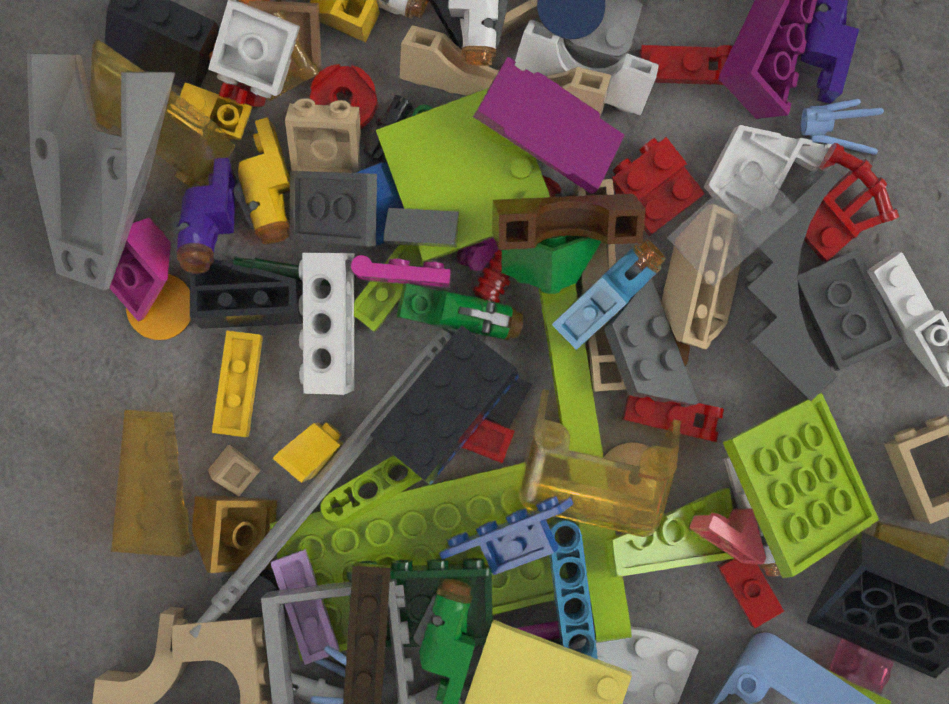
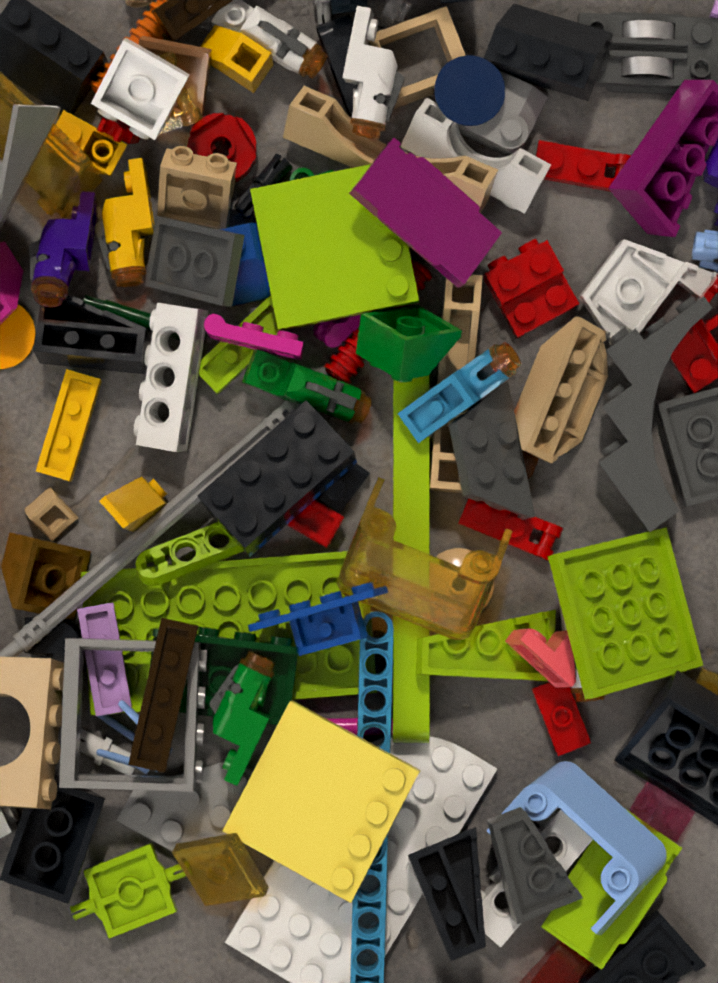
camera: 10 degrees right, 0 degrees up
(421, 227) = (281, 295): dark grey slope -> none
(602, 217) = (466, 314): reddish brown arch -> none
(732, 224) = (595, 340): clear window -> none

